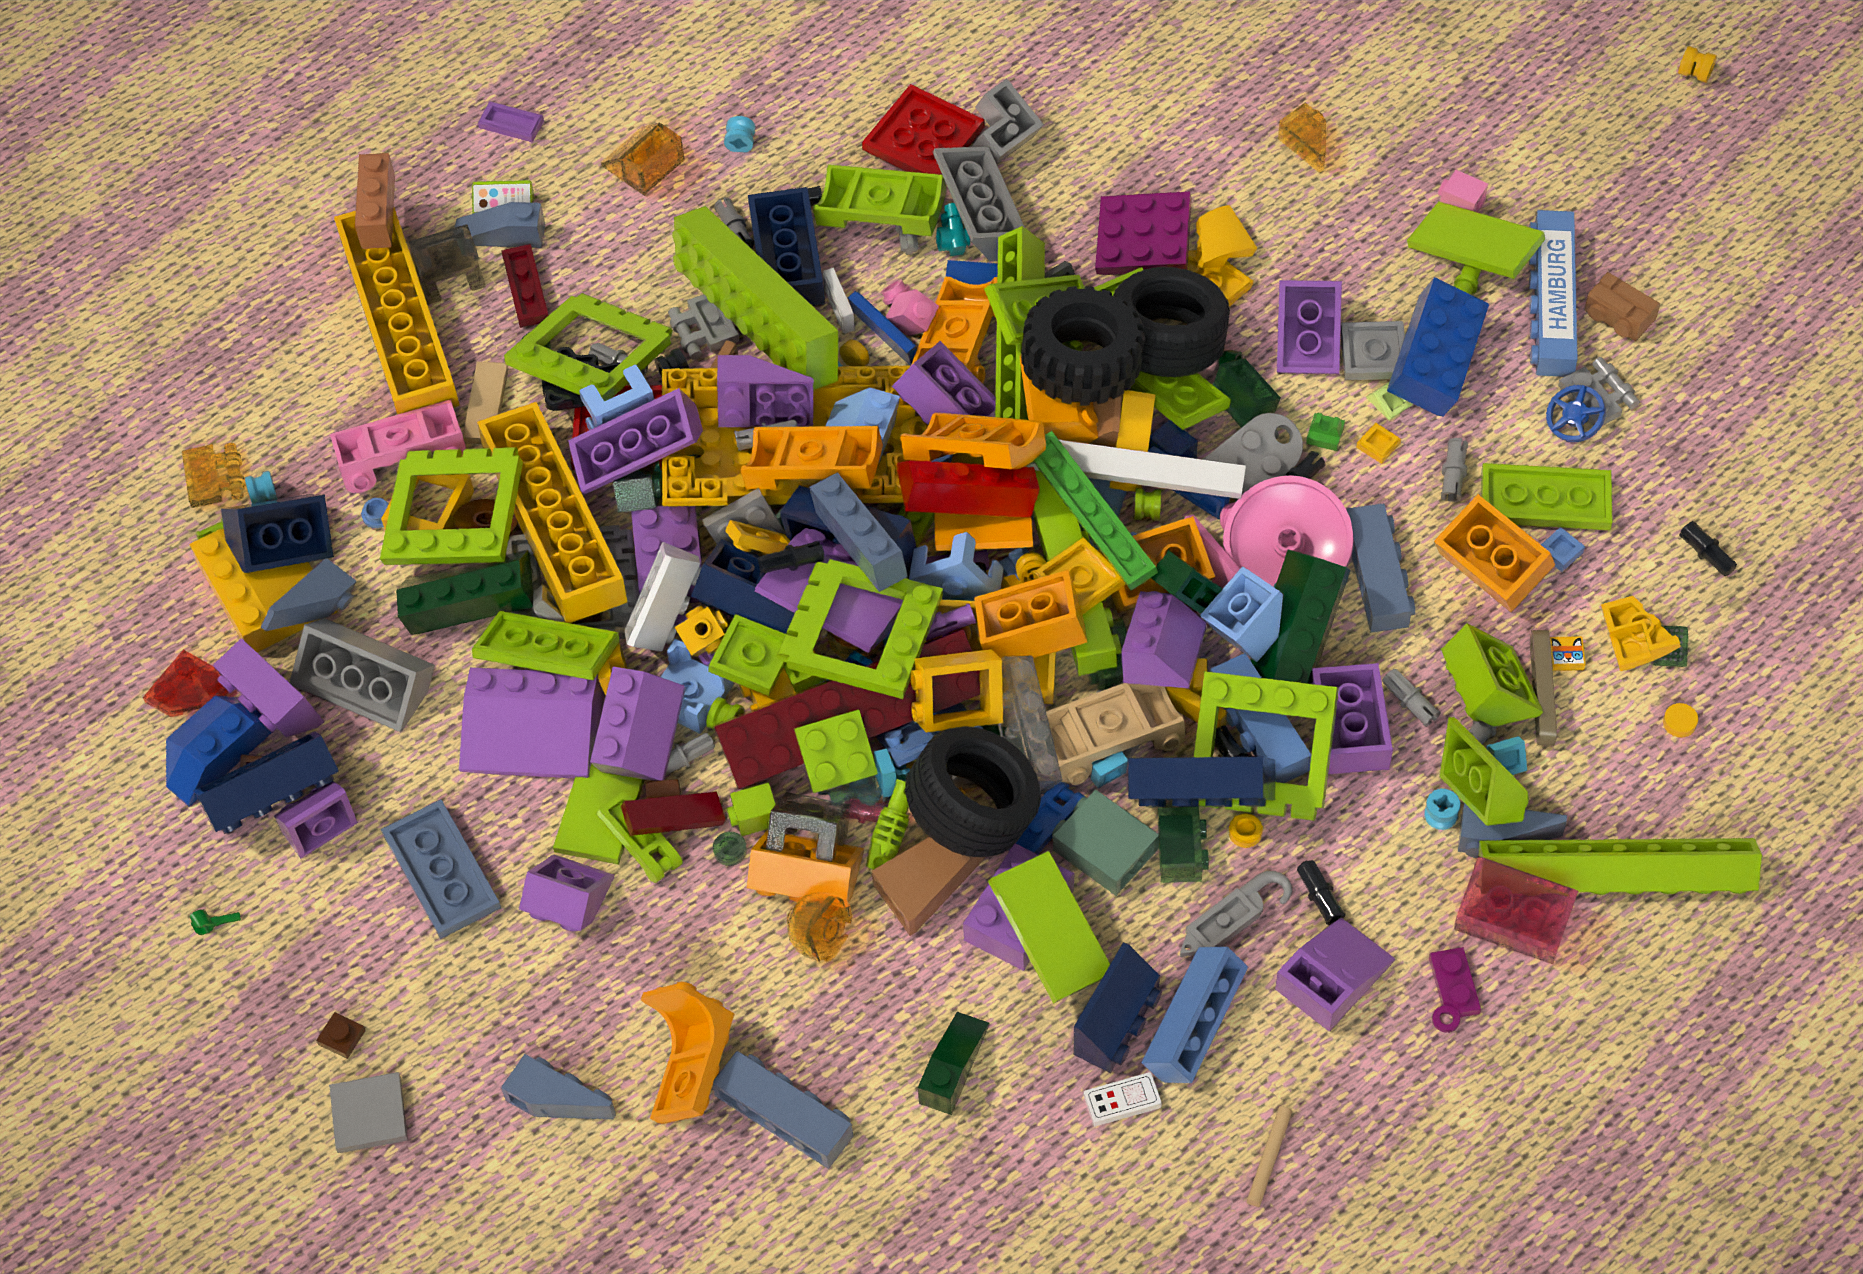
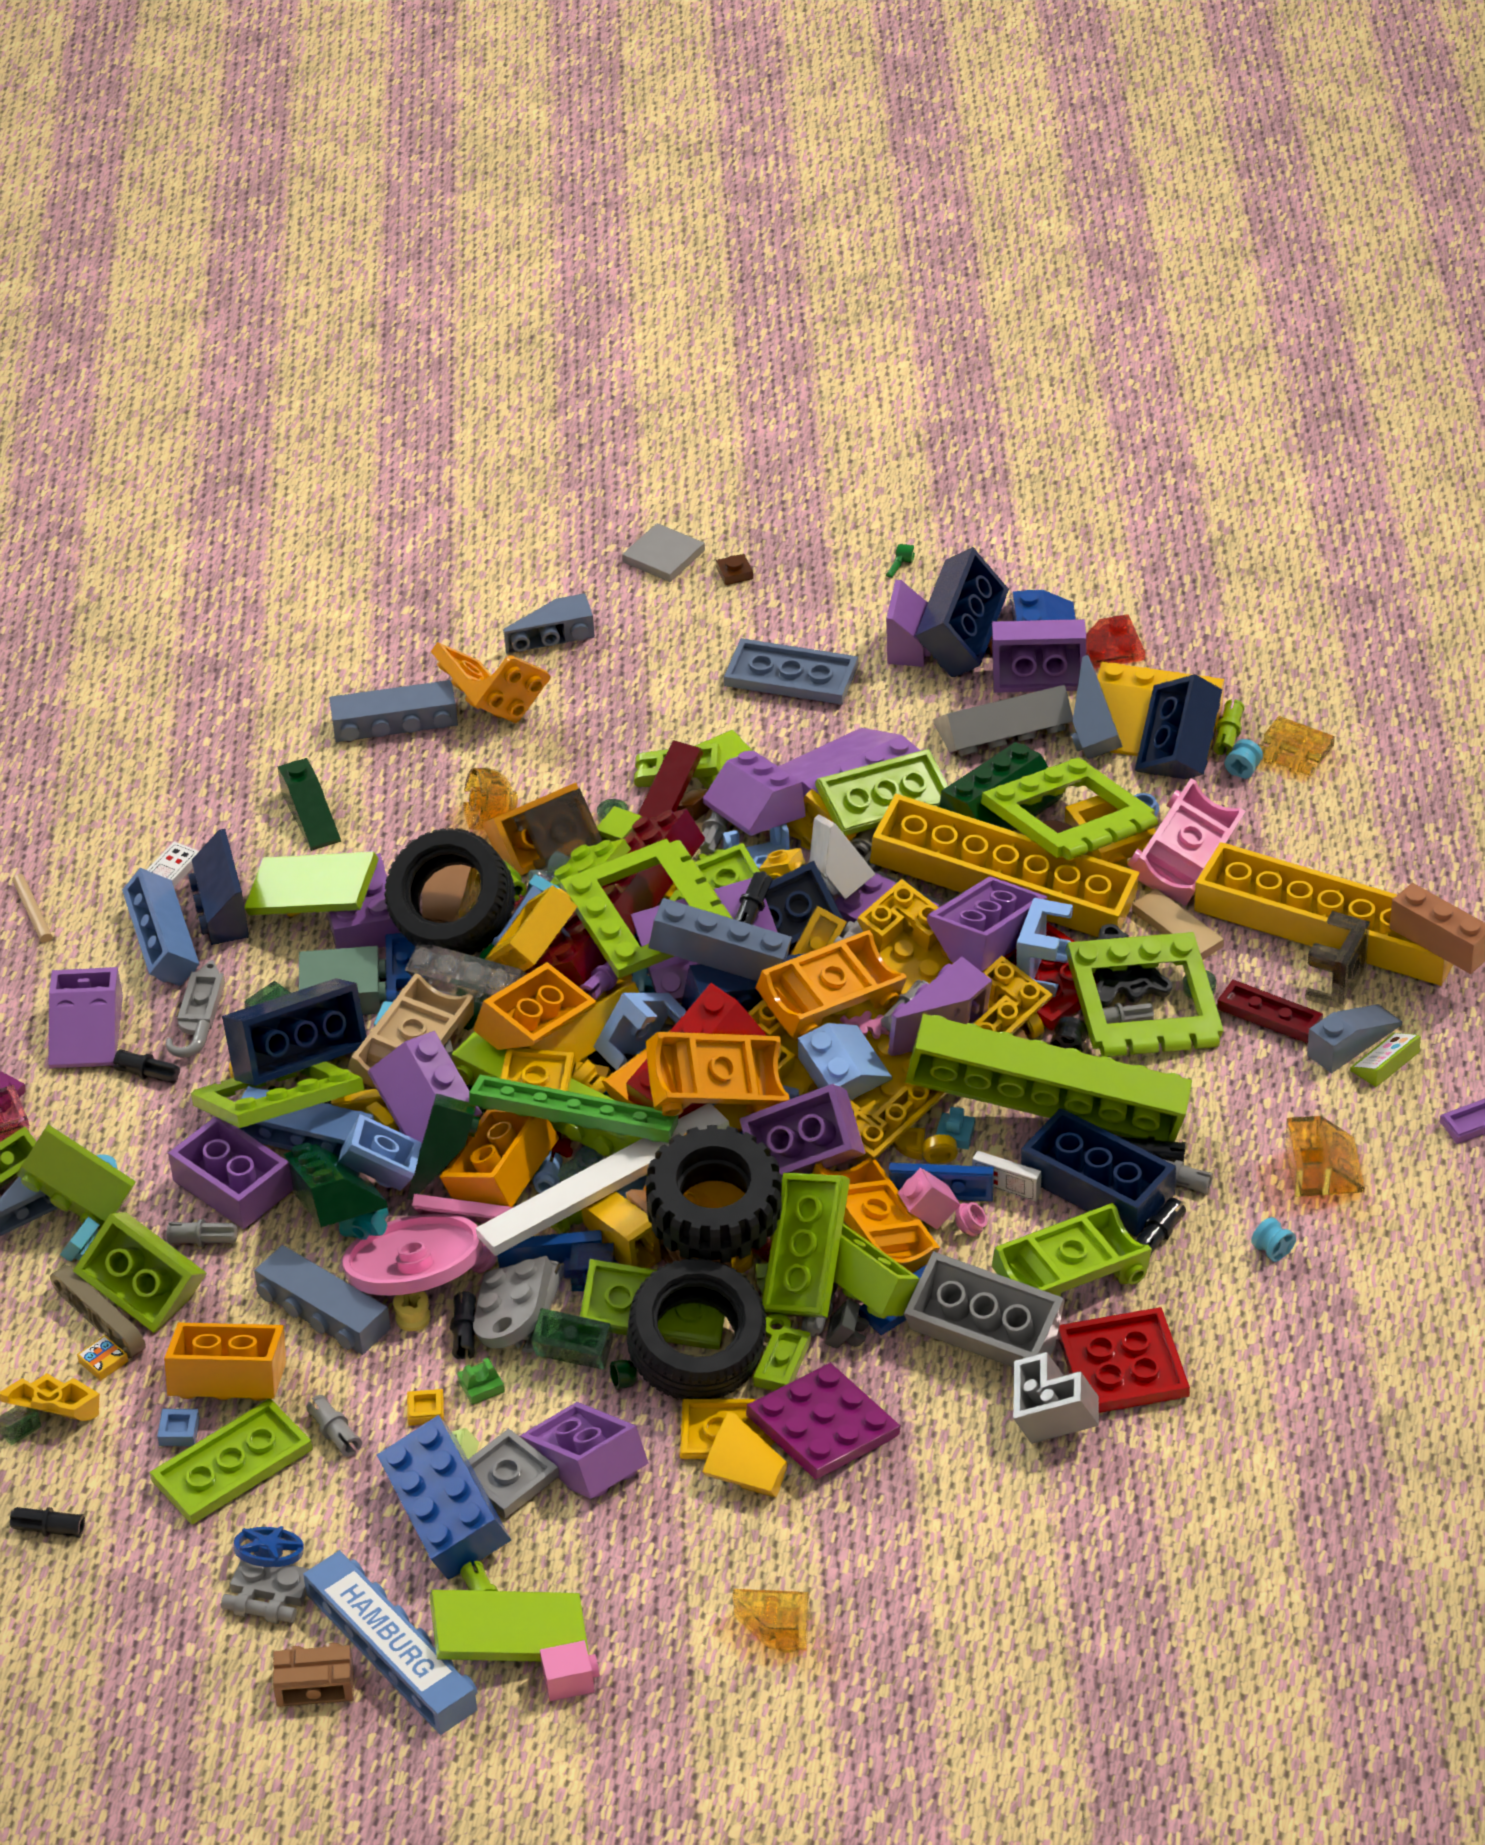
camera: 135 degrees right, 15 degrees down
(564, 892) = (689, 711): medium lavender slope -> none

